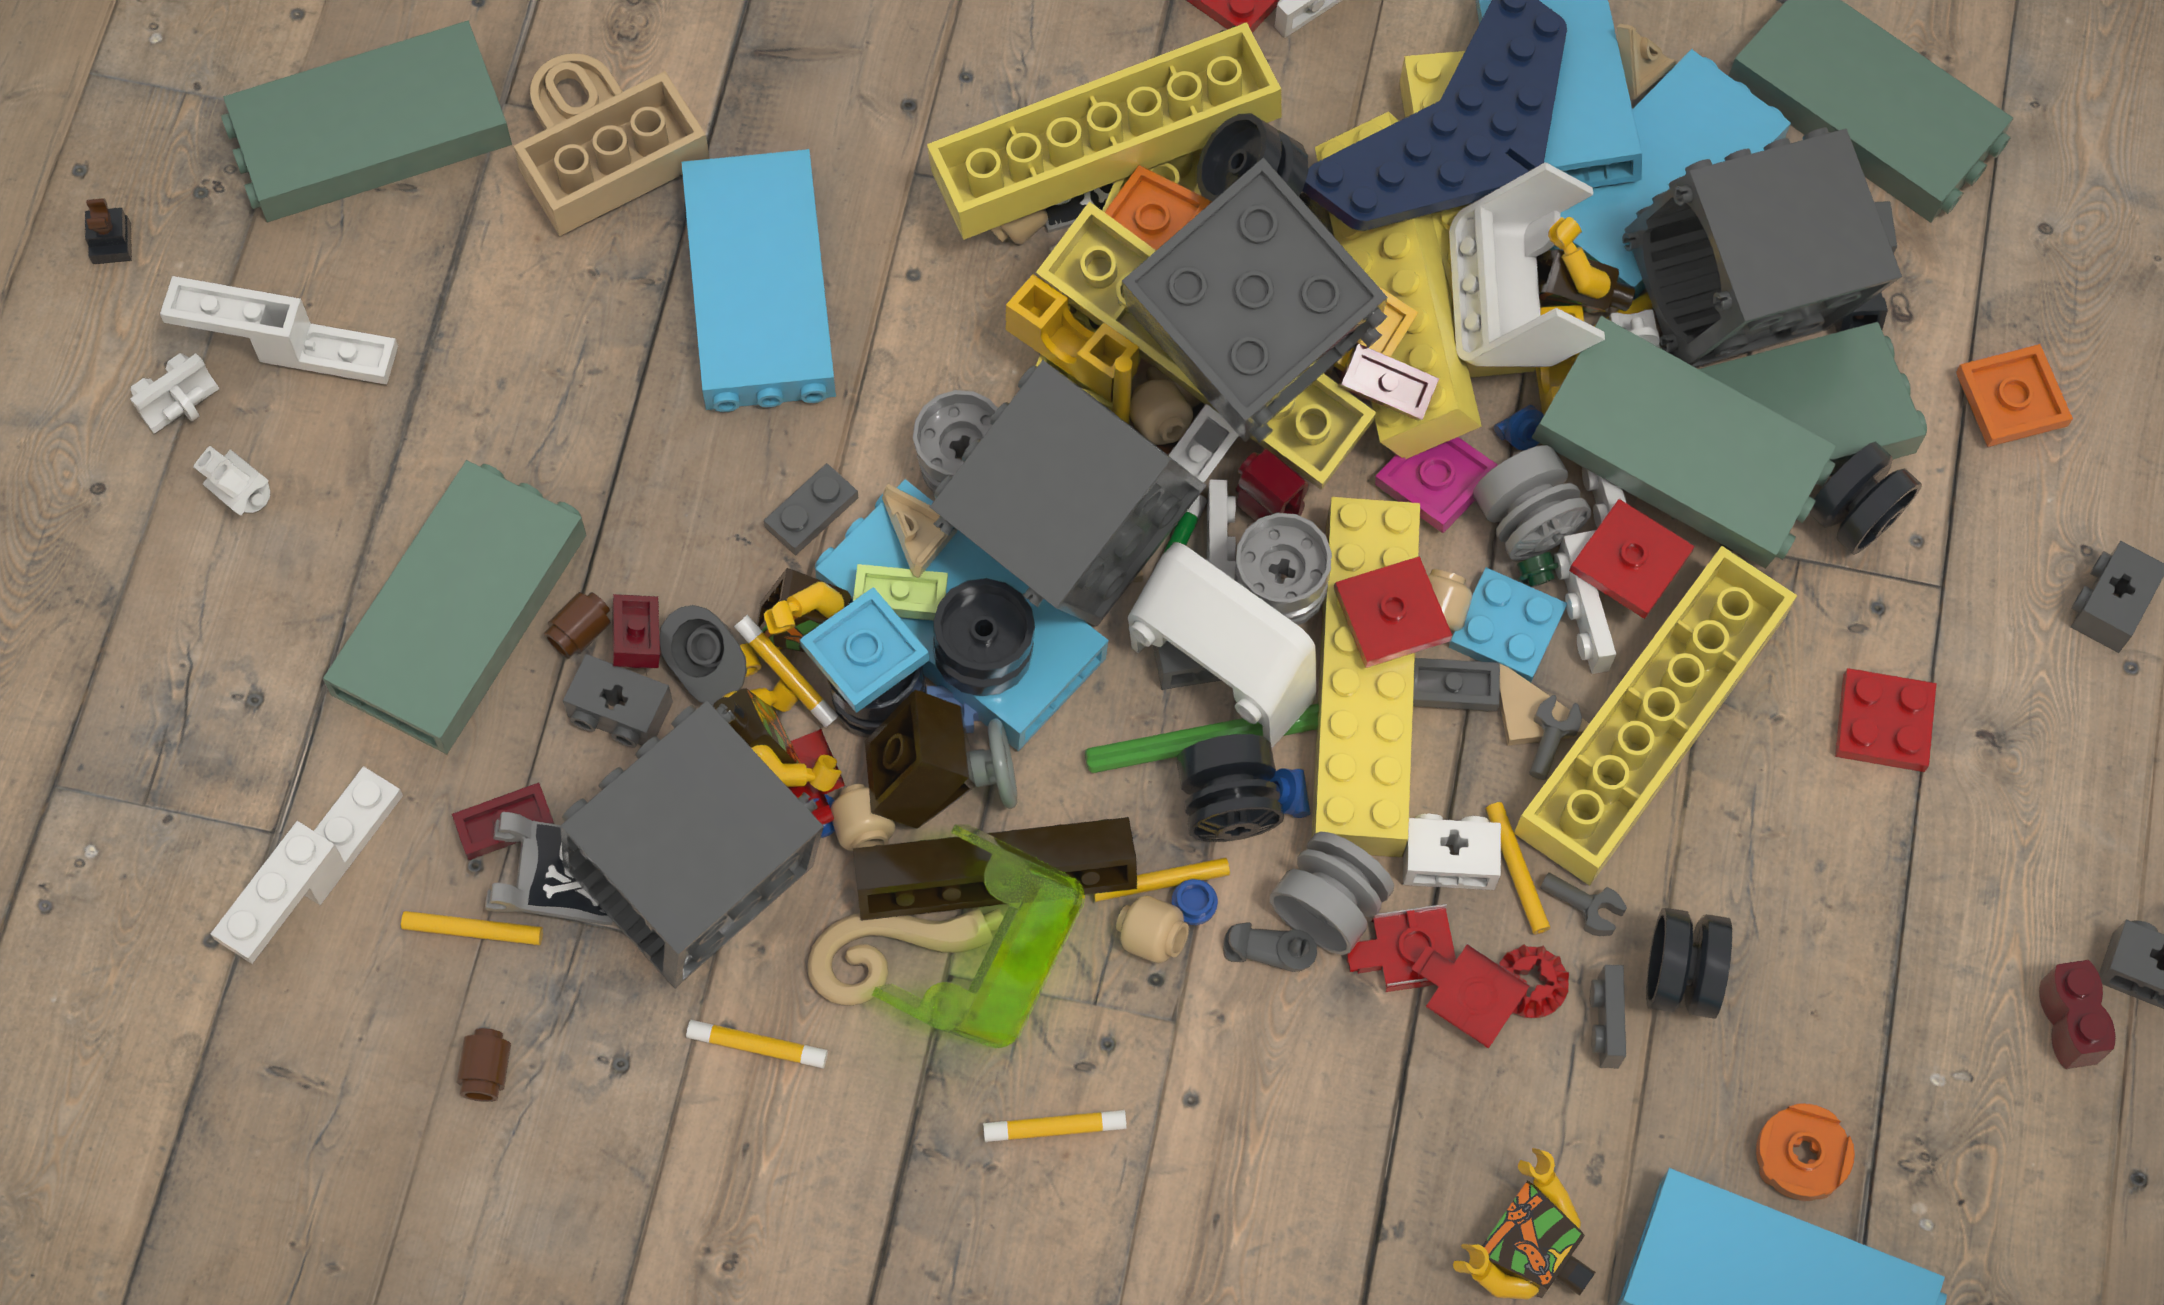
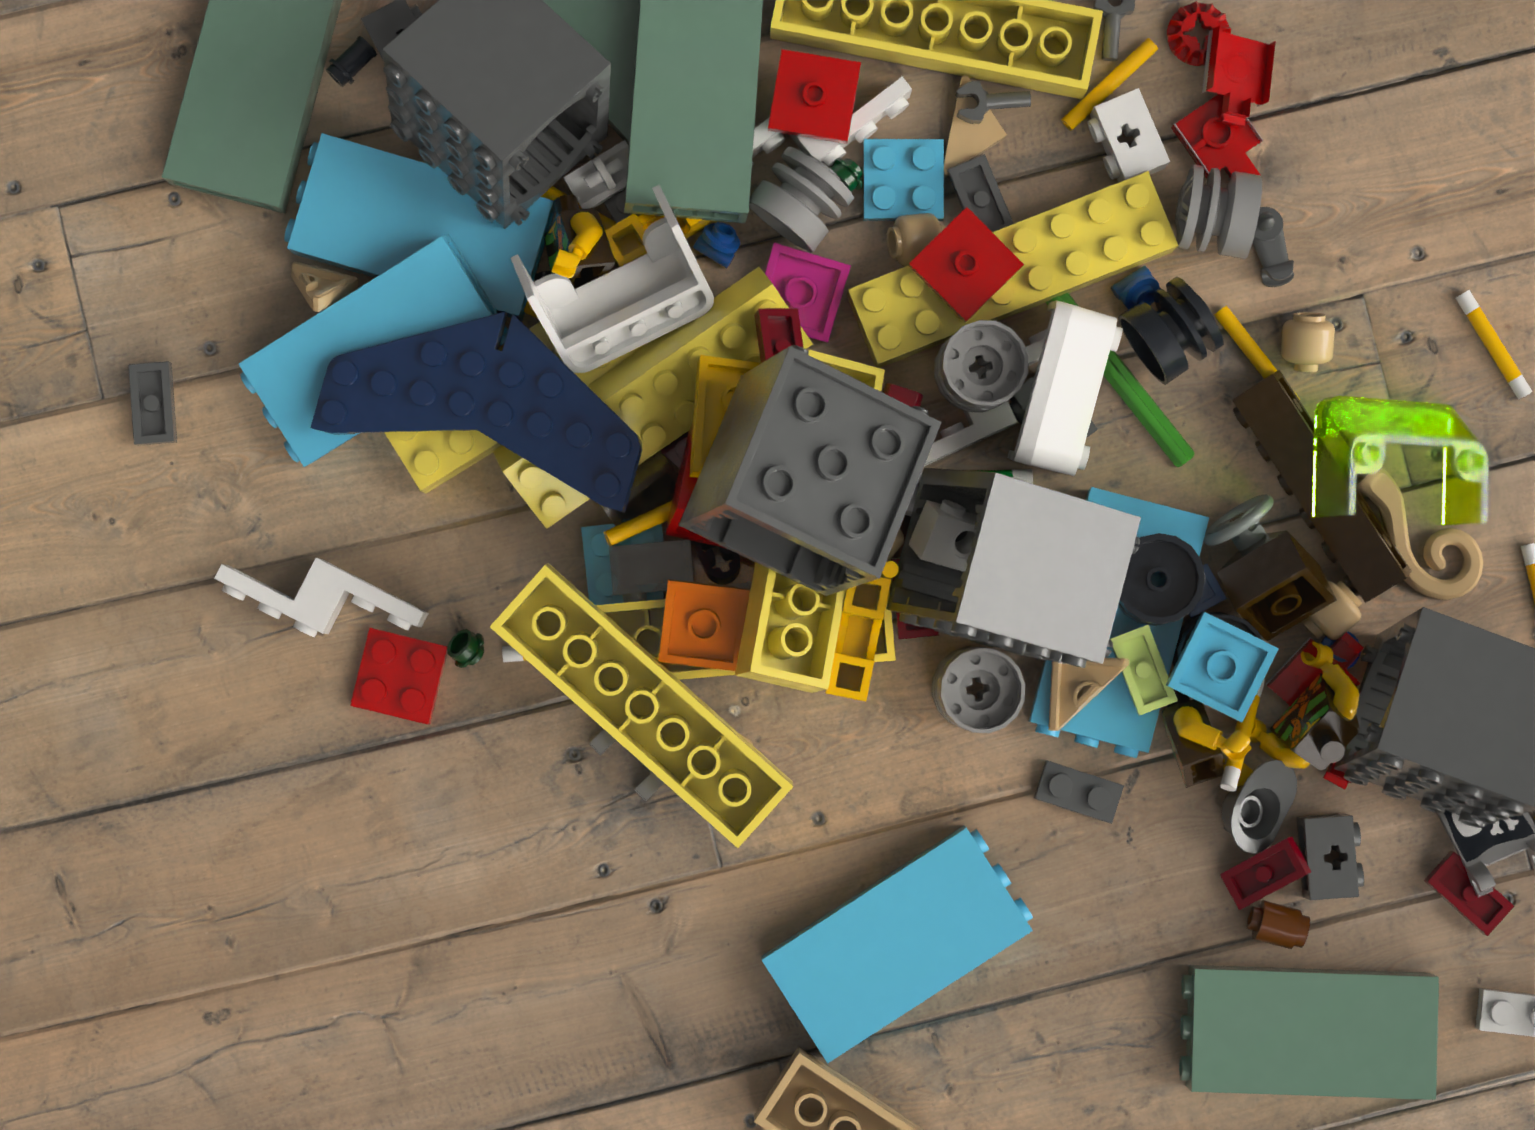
camera: 115 degrees left, 20 degrees up
(1196, 901) = (1264, 321): blue plate -> none
(1239, 146) = (633, 554): black wheel -> none

